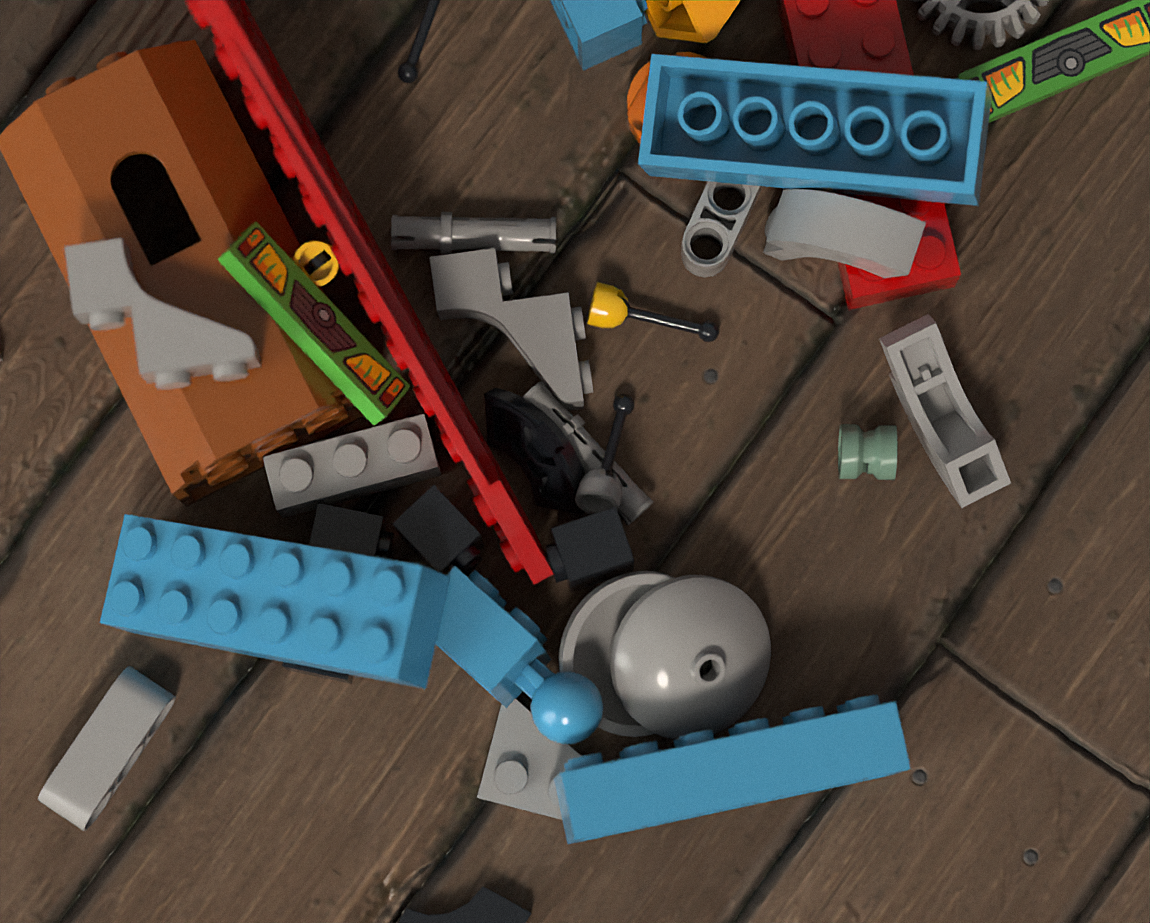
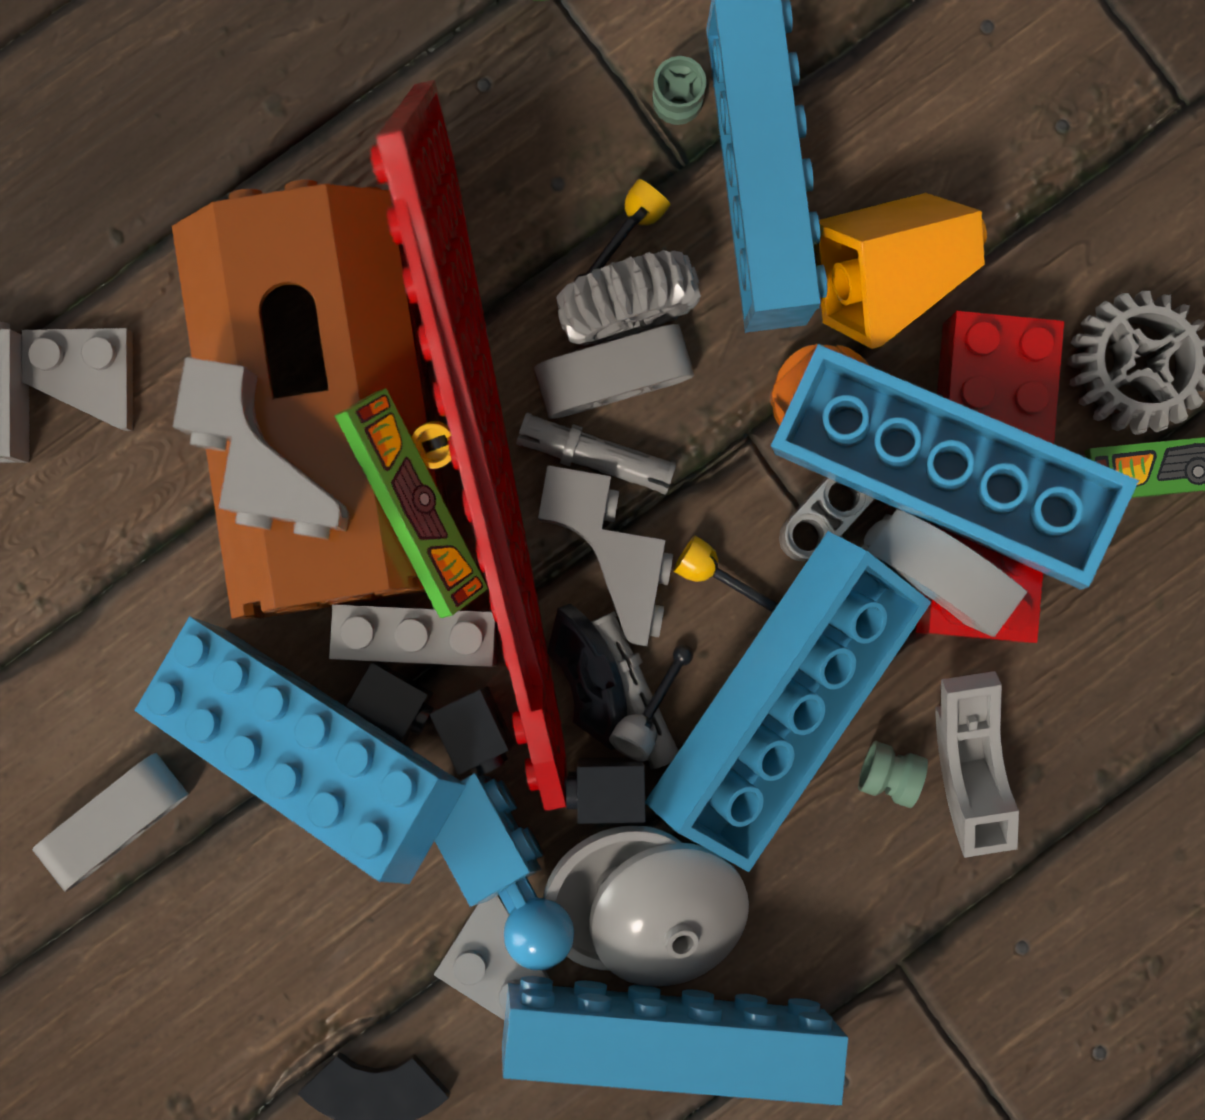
camera: 15 degrees right, 5 degrees up
(456, 71) = (628, 297): none -> light grey gear
(465, 148) = (614, 371): none -> light grey beam
(738, 407) = (787, 701): none -> dark azure brick

